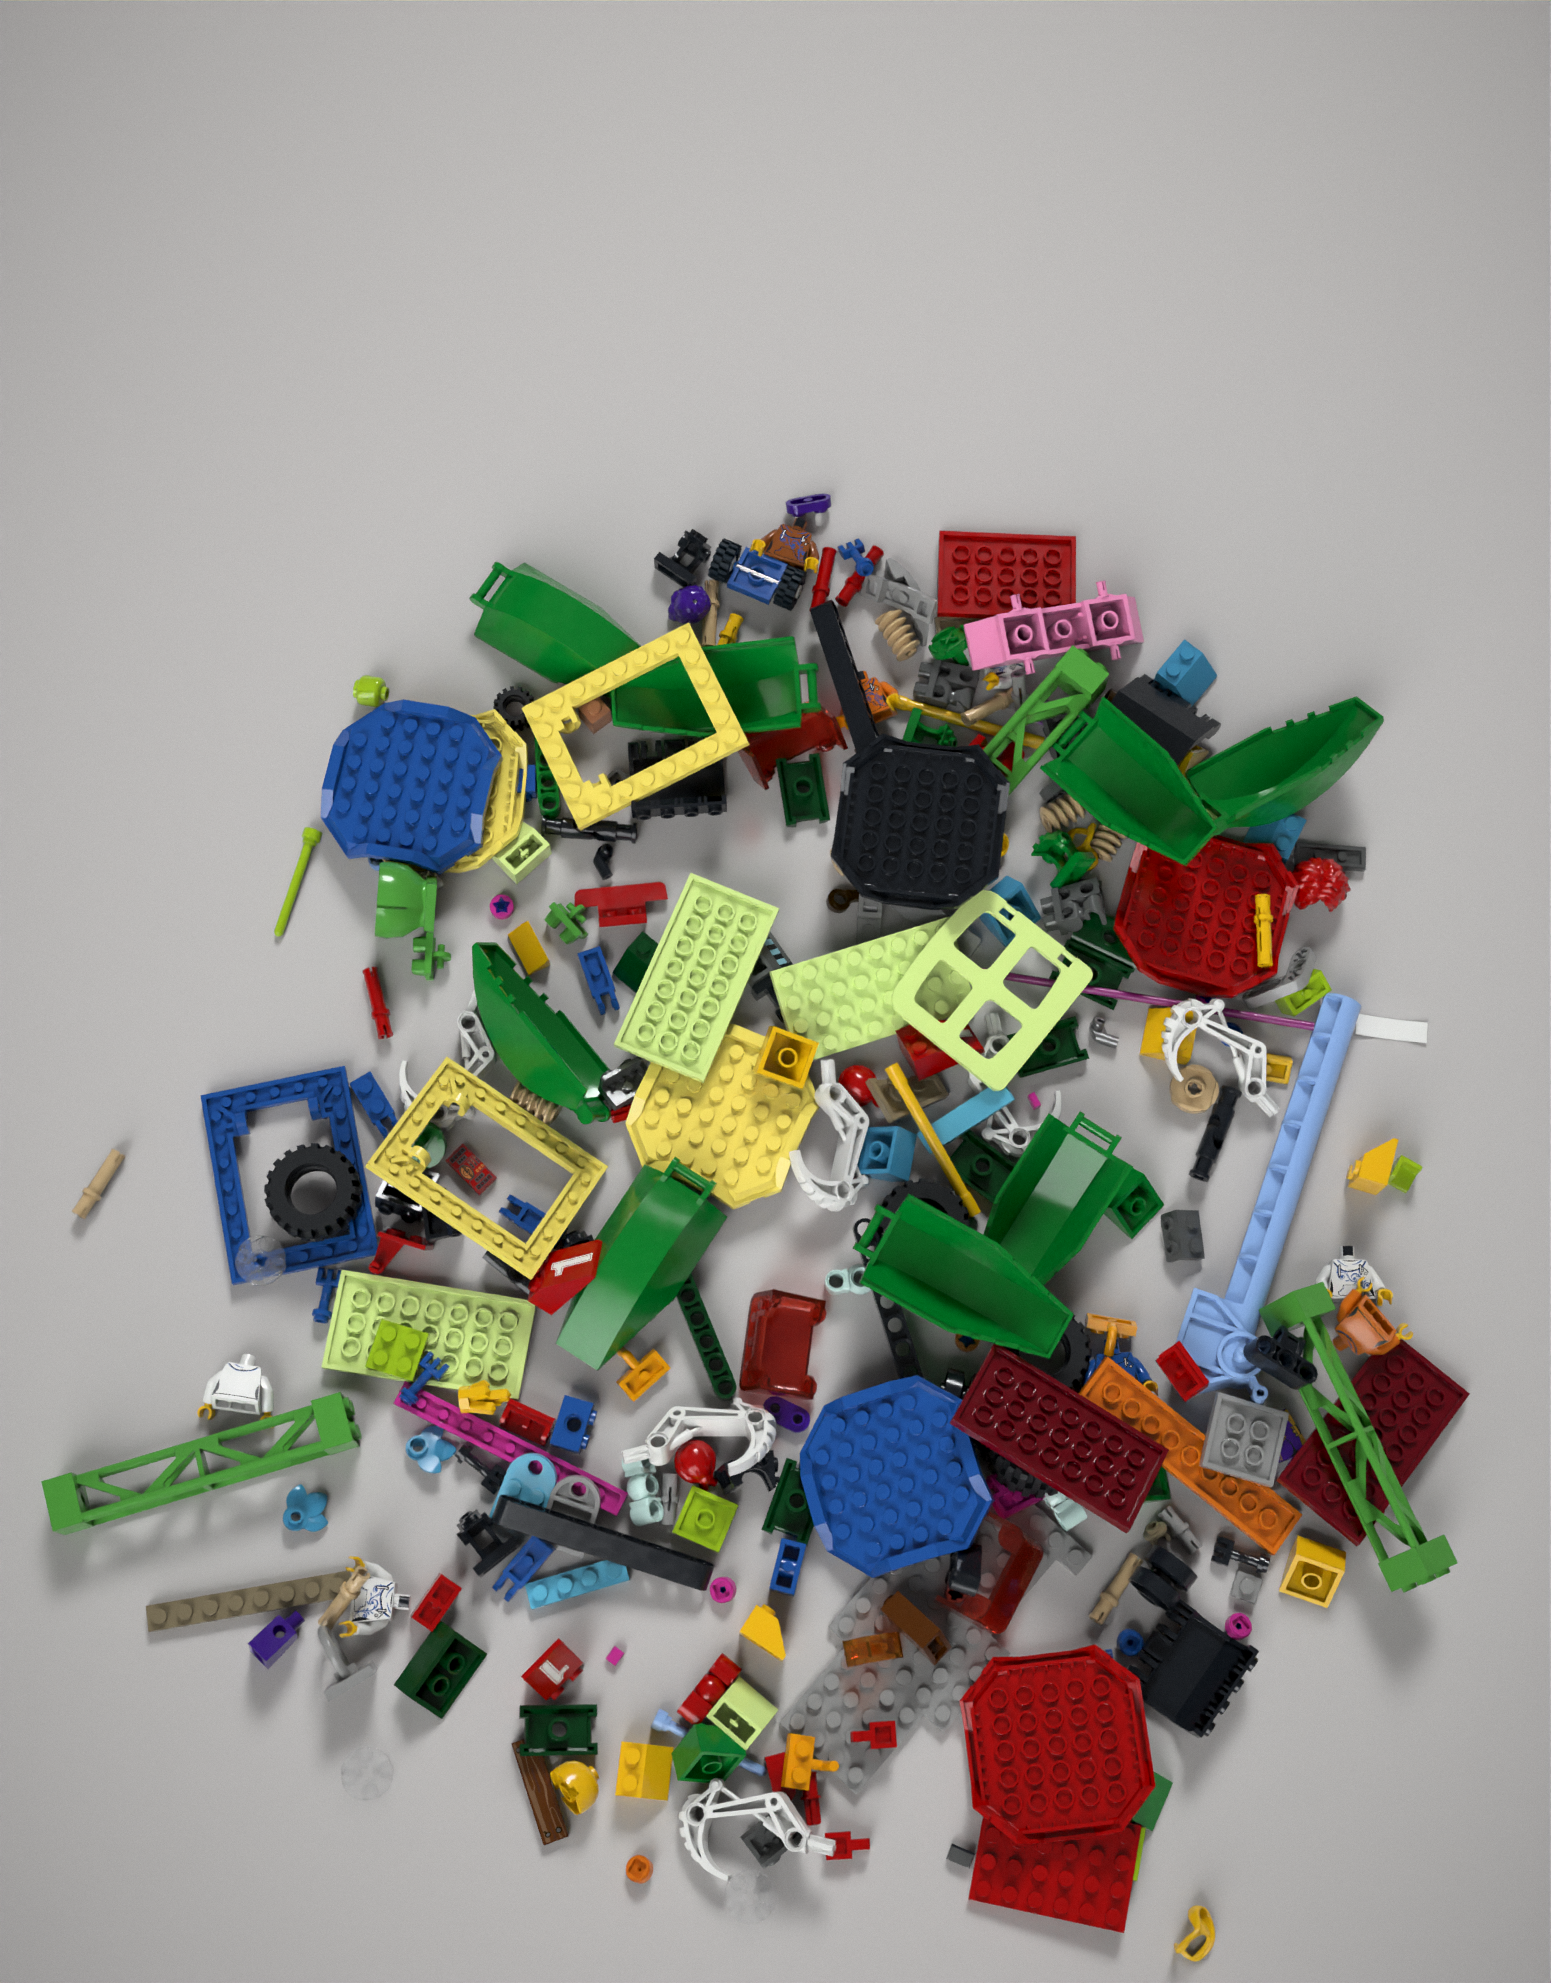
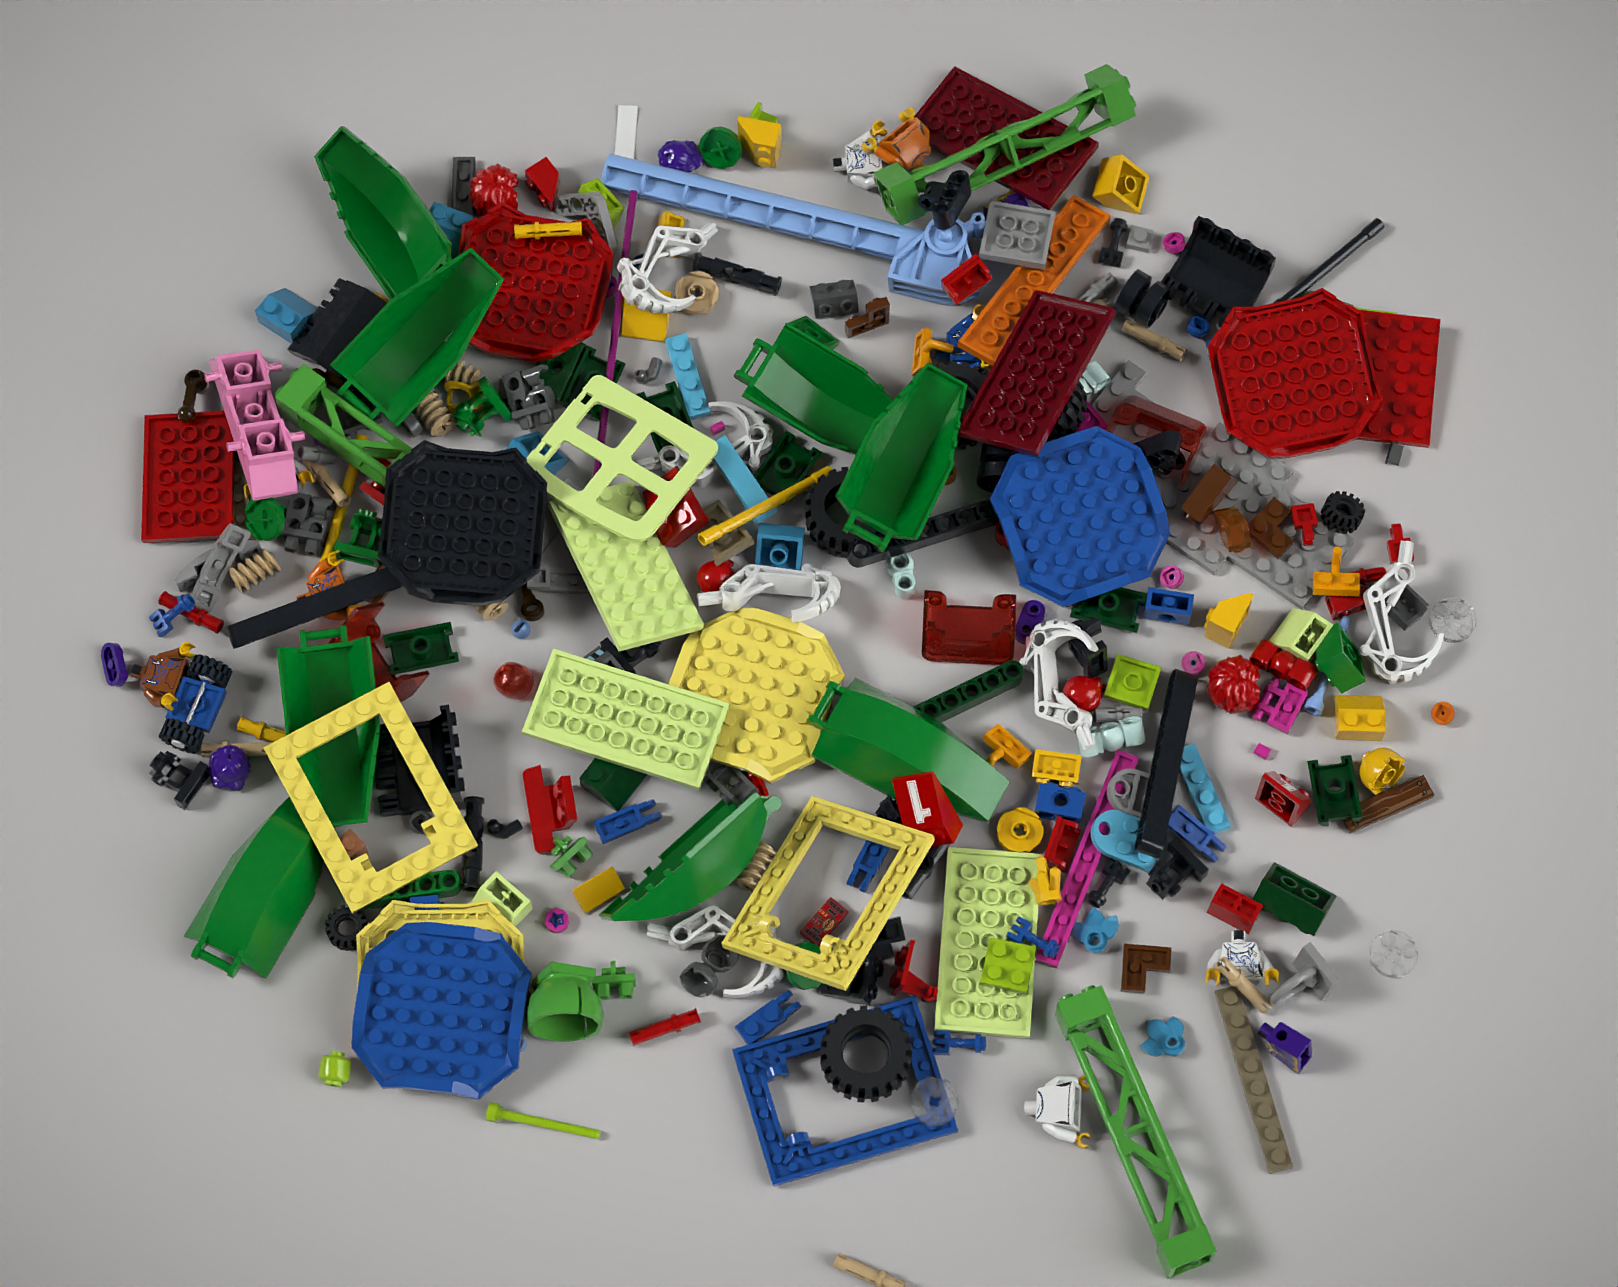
camera: 90 degrees left, 5 degrees down
(391, 1491) = (1138, 960): none -> reddish brown plate
(422, 1039) = (699, 979): none -> dark grey hair
(439, 1051) = (717, 957): none -> dark grey hair
(543, 1366) = (1014, 819): none -> yellow plate
(613, 1424) = (1056, 766): none -> yellow bracket
(659, 1688) = (1286, 709): none -> dark pink plate
(689, 1630) = (1234, 685): none -> red hair
(761, 877) = (513, 680): none -> clear red hair
(785, 1057) = (701, 631): yellow slope -> none
(815, 892) = (524, 630): none -> medium blue hinge
(821, 588) = (206, 646): red pin -> none
(826, 1577) = (1171, 577): none -> dark pink tile
(874, 1688) = (1265, 529): none -> reddish brown plate
(874, 1776) = (1338, 520): none -> black tyre
(1075, 574) = (186, 412): none -> dark brown piece
(1096, 1073) = (687, 376): none -> medium azure plate
(1155, 1272) = (875, 316): none -> reddish brown plate
(1203, 1925) = (1419, 263): yellow piece -> none
(1242, 1859) = (1366, 234): none -> black piece
(1332, 939) = (545, 181): none -> red slope
(1359, 1081) = (682, 155): none -> dark purple hair
(1368, 1125) = (720, 147): none -> green tile

